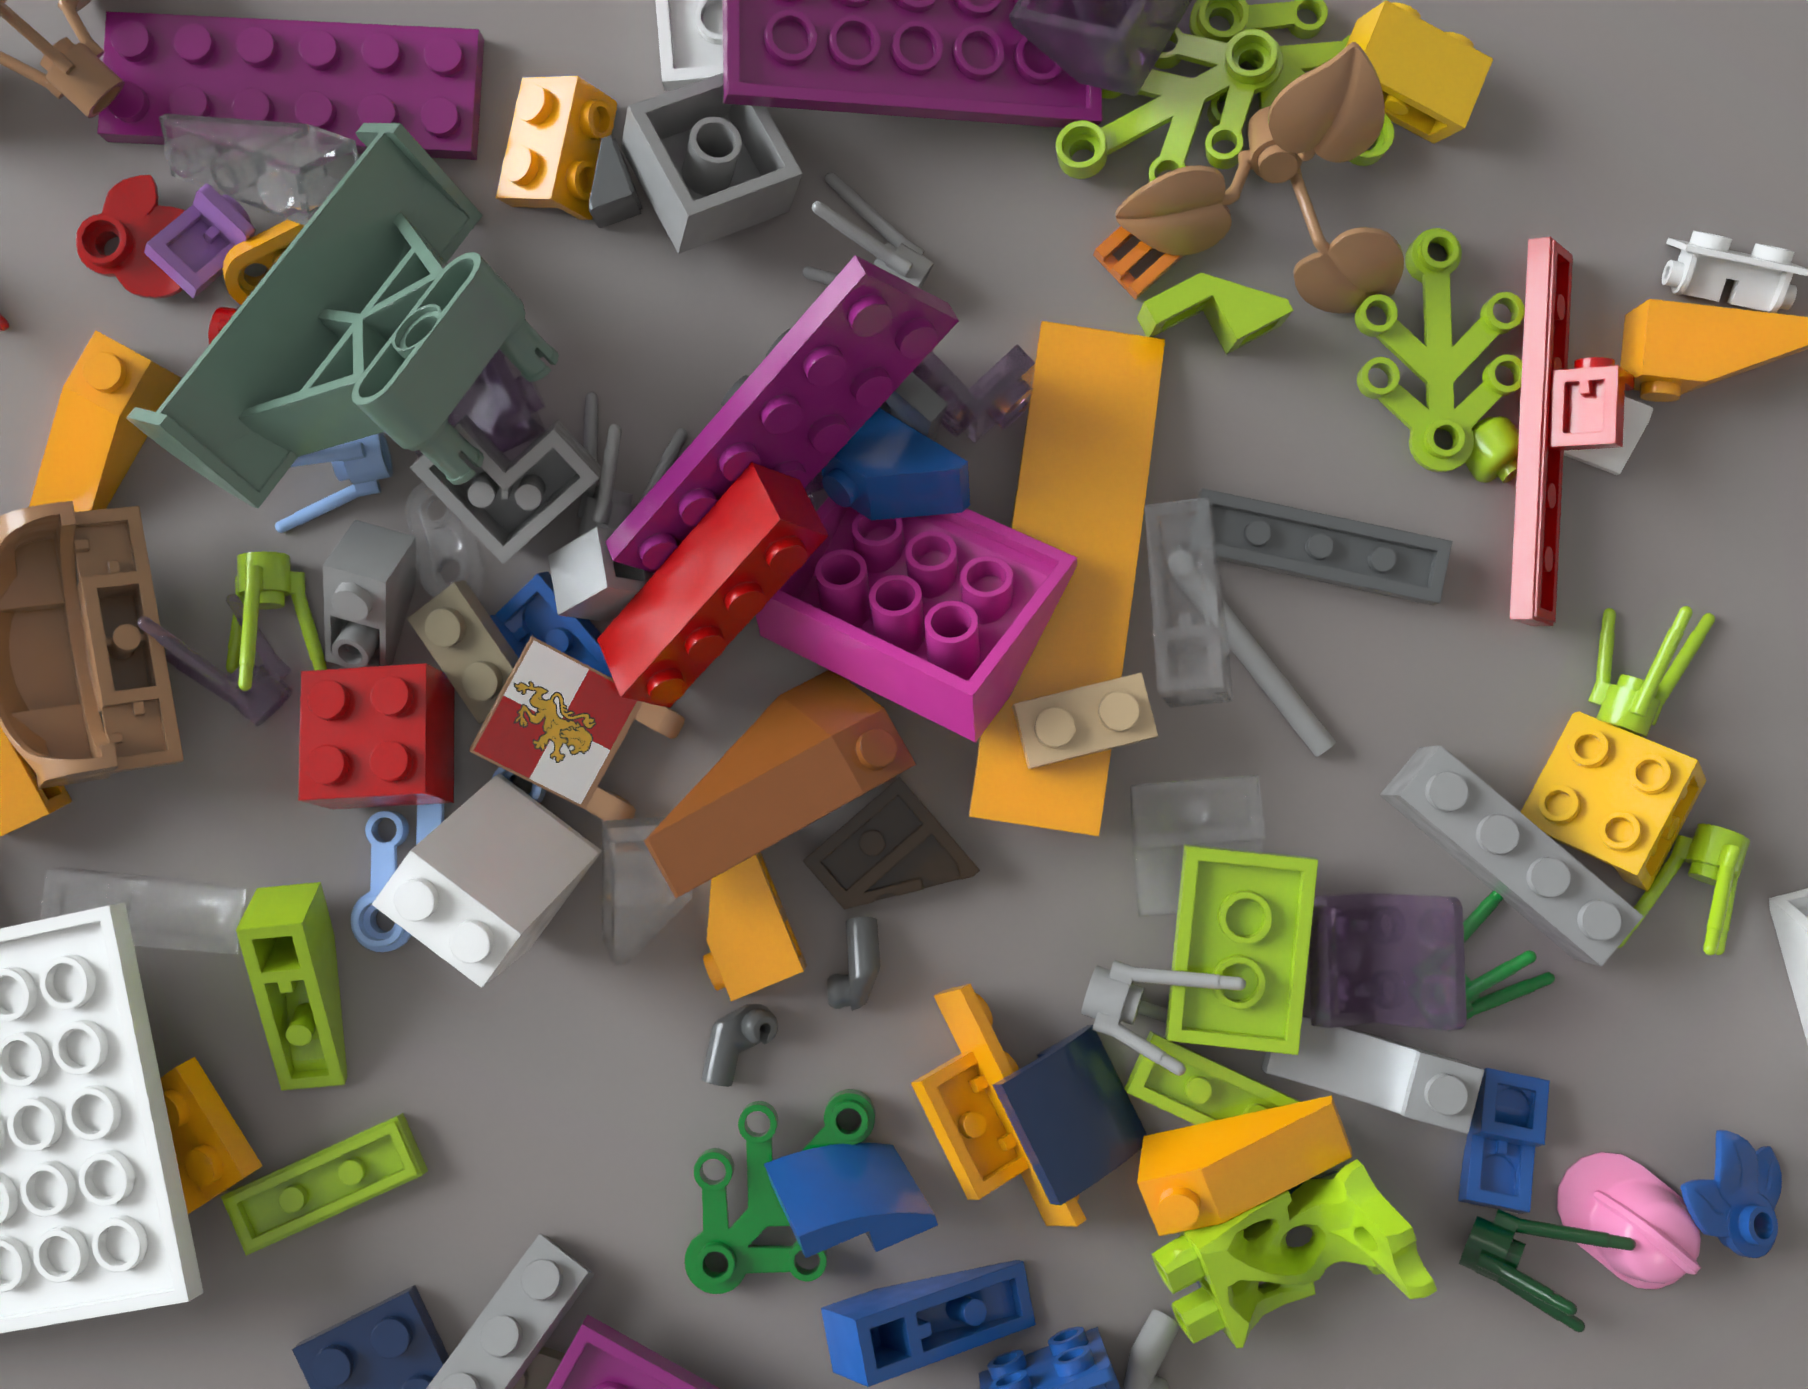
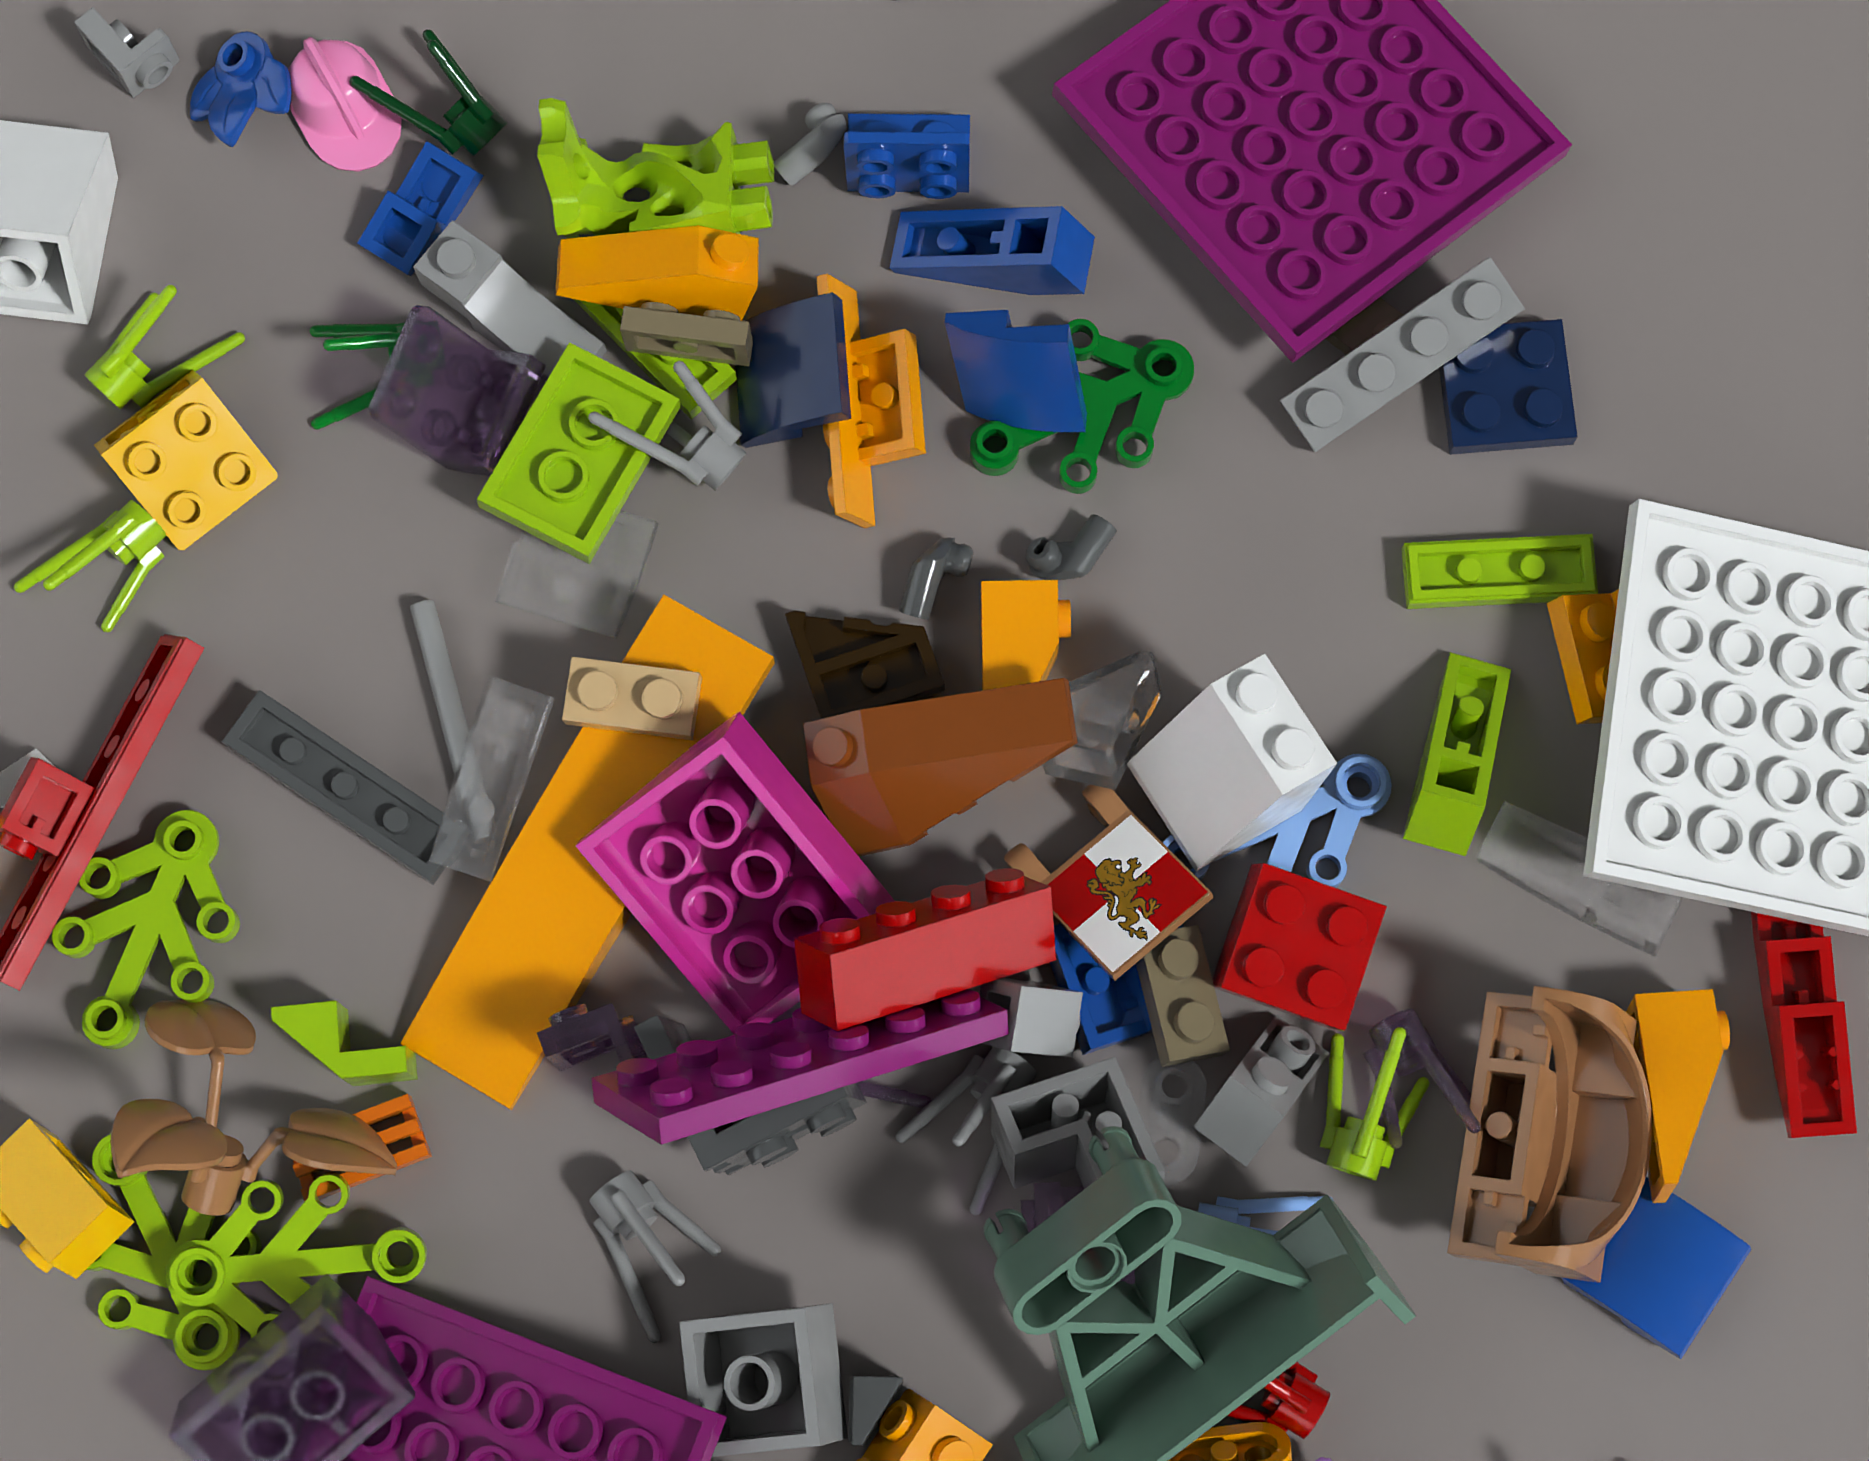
camera: 160 degrees left, 10 degrees down
(90, 435) = (1473, 1358): light orange slope -> none
(896, 473) = (706, 993): blue slope -> none
(1213, 1101) = (665, 332): none -> dark tan plate
(1494, 450) = (139, 817): lime piece -> none
(1511, 855) = (302, 445): light grey brick -> none

